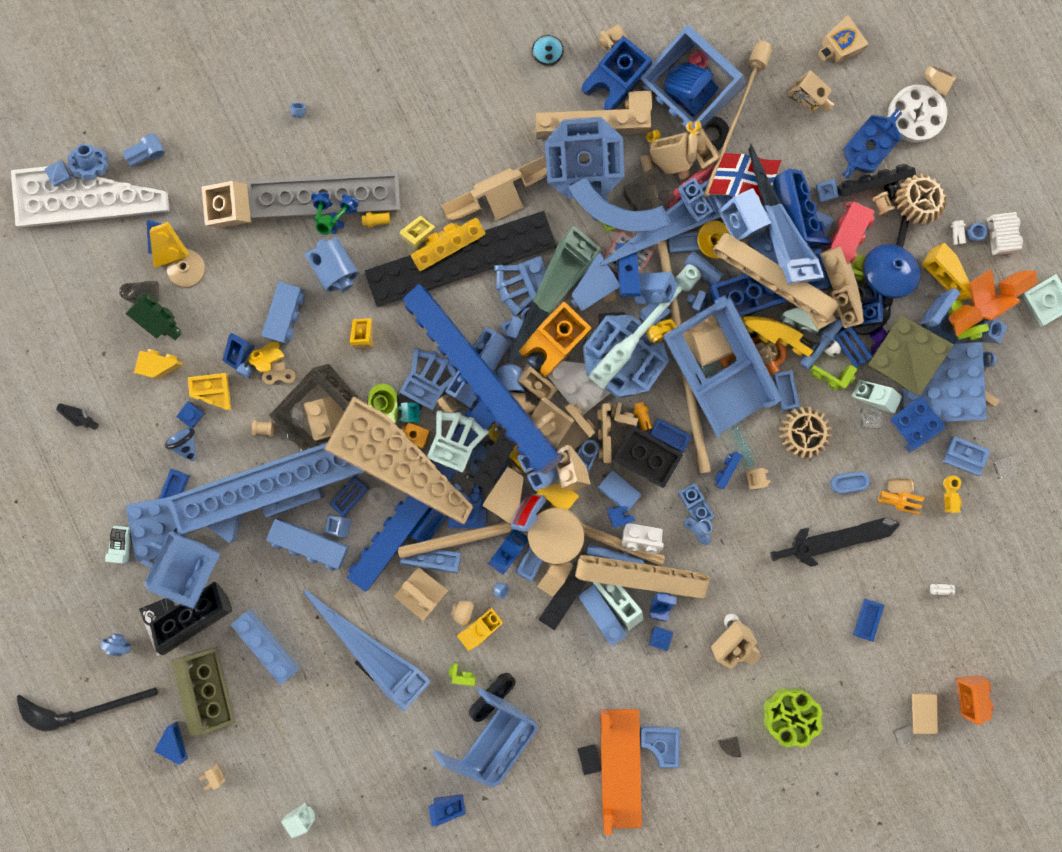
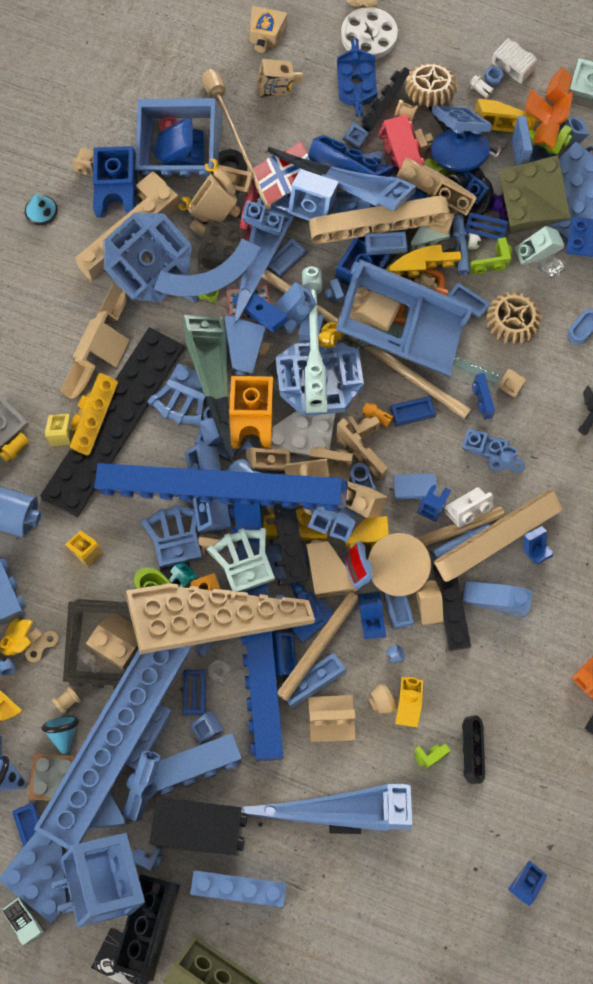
camera: 45 degrees left, 15 degrees down
(212, 466) = (47, 775): none -> light grey piece
(223, 573) = (141, 859): none -> medium blue bracket
(242, 445) = (61, 732): none -> medium azure hat
(260, 529) = (141, 785): none -> medium blue piece
(272, 586) = (198, 826): none -> black slope
(496, 746) = (517, 783): medium blue windscreen -> none
(621, 604) = (501, 571): light aqua slope -> none
(647, 456) = (411, 439): black brick -> none
(661, 638) = (561, 574): blue tile -> none
(708, 271) = (326, 264): medium blue axle -> none
(710, 230) = (300, 239): yellow dish -> none
(764, 298) = (385, 243): none -> medium blue tile
(870, 239) = (424, 141): none -> tan tile
(891, 188) = (402, 94): black bush -> none
(914, 248) = (461, 119): none -> medium blue plate

